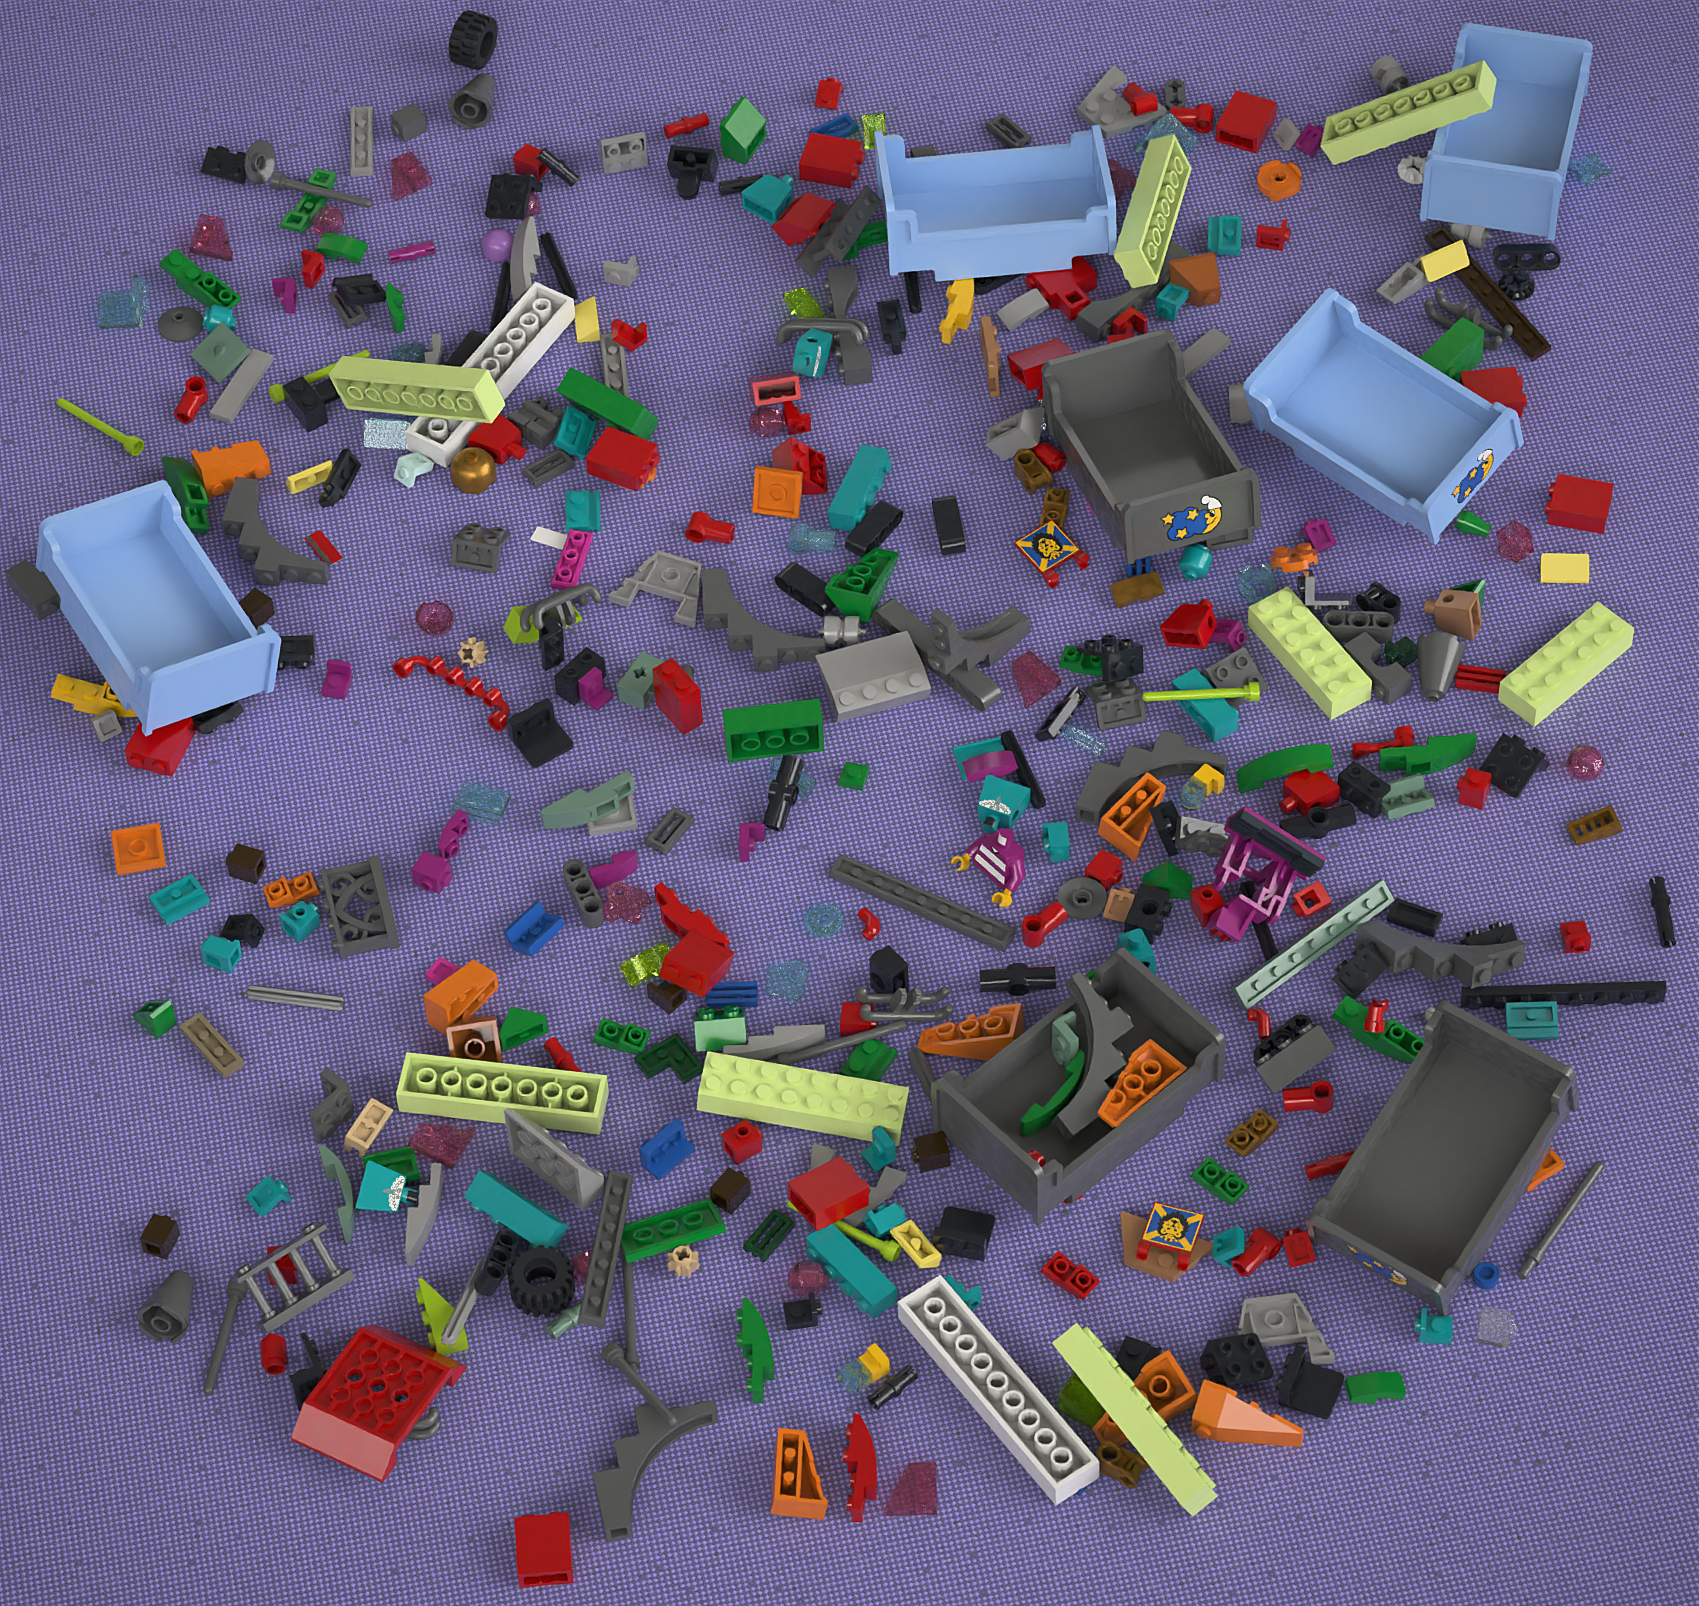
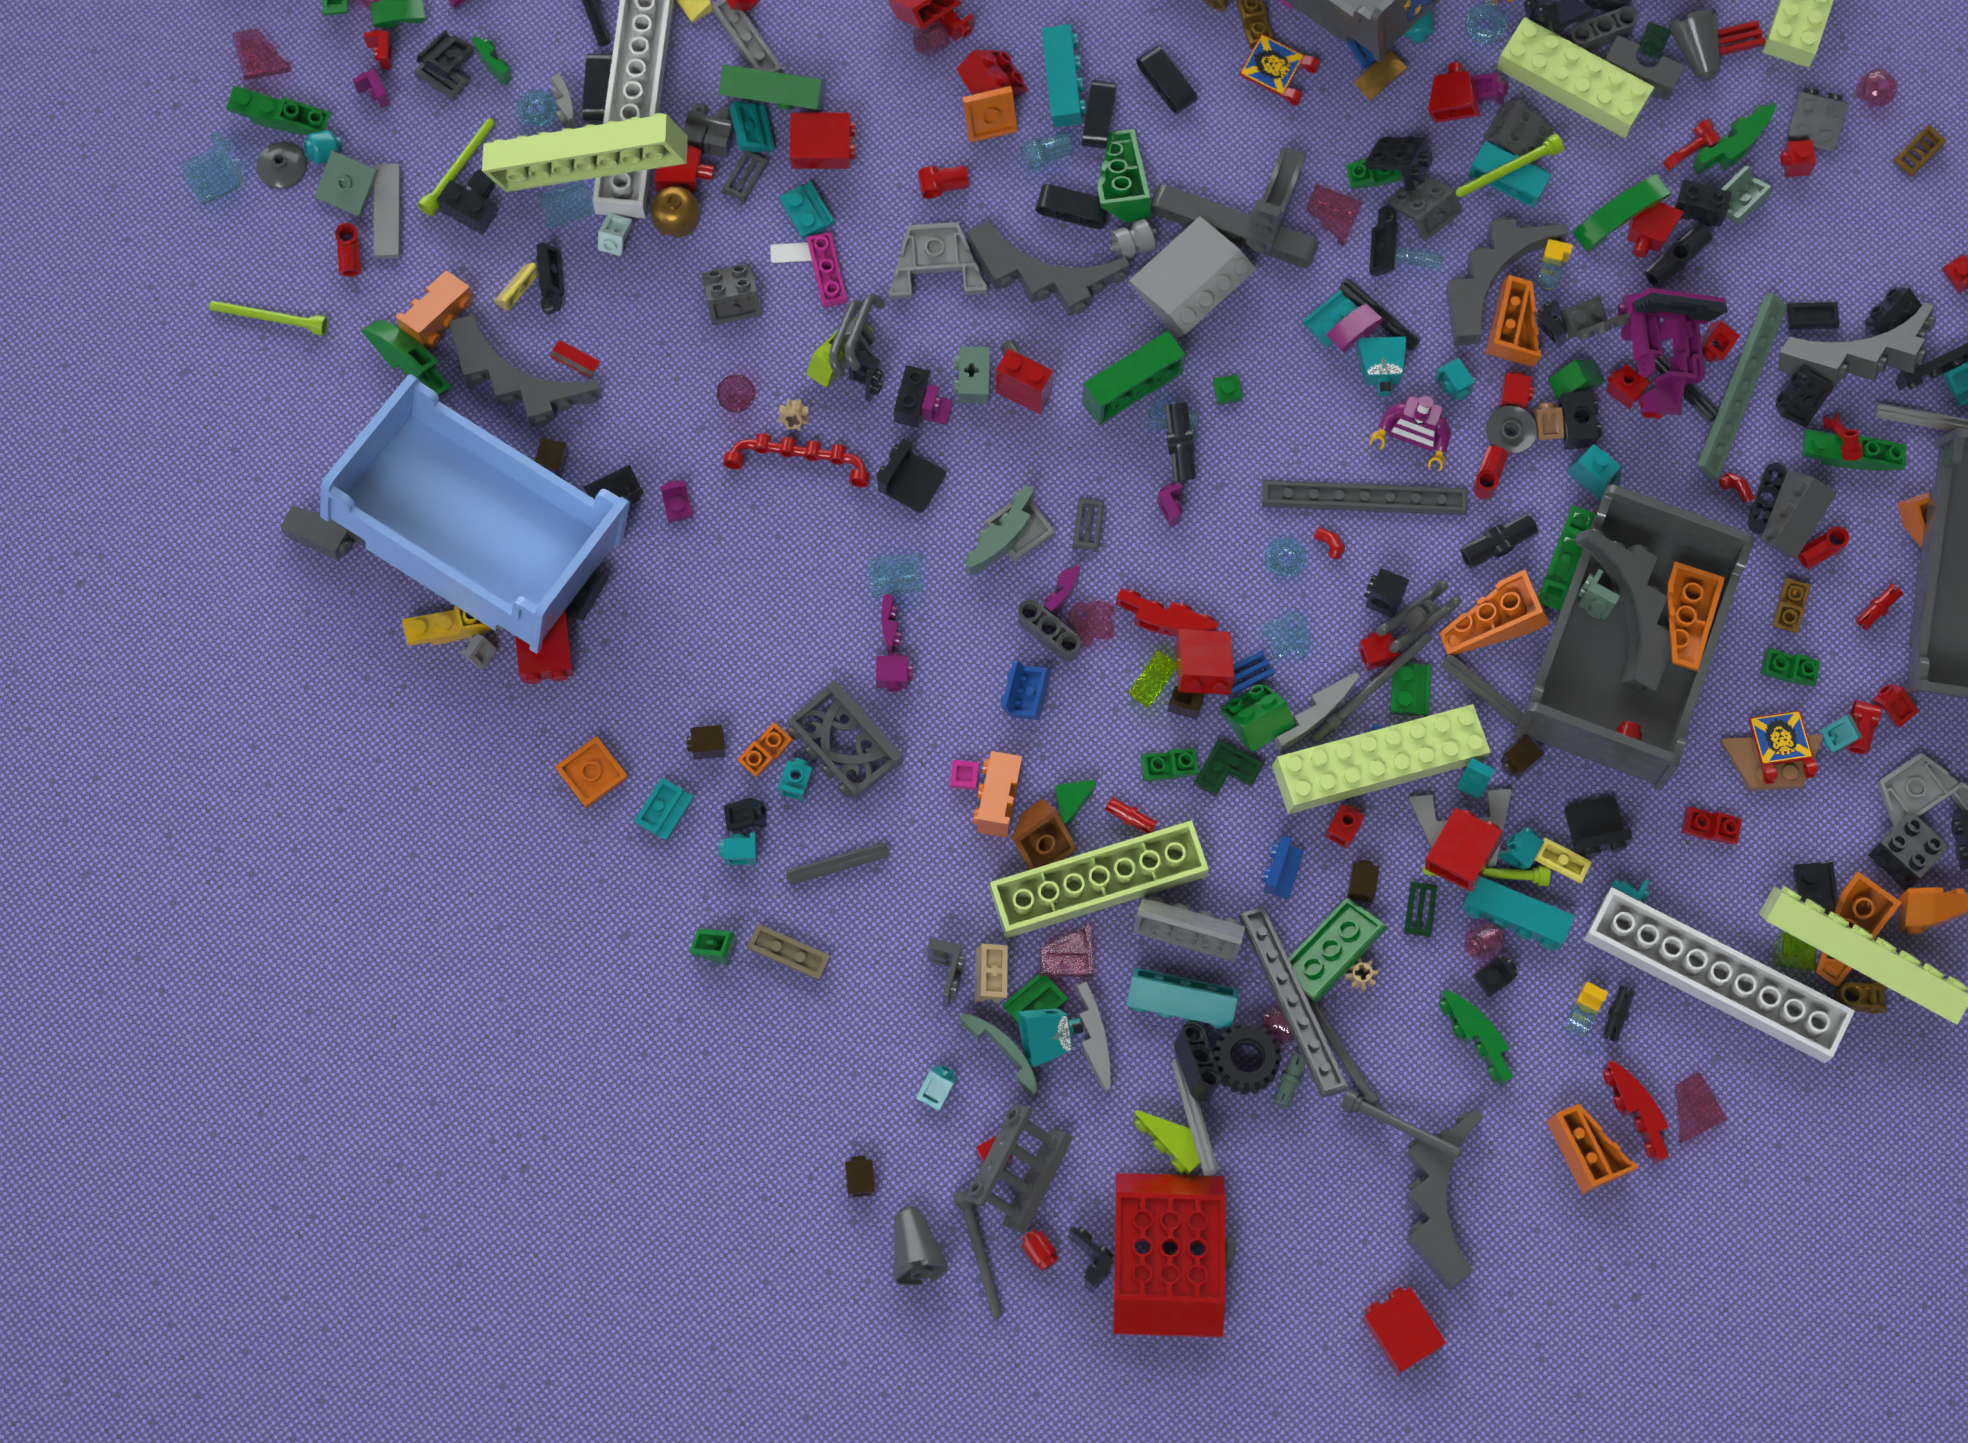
camera: 30 degrees left, 20 degrees up
(1040, 1117) = (1618, 625): green slope -> none

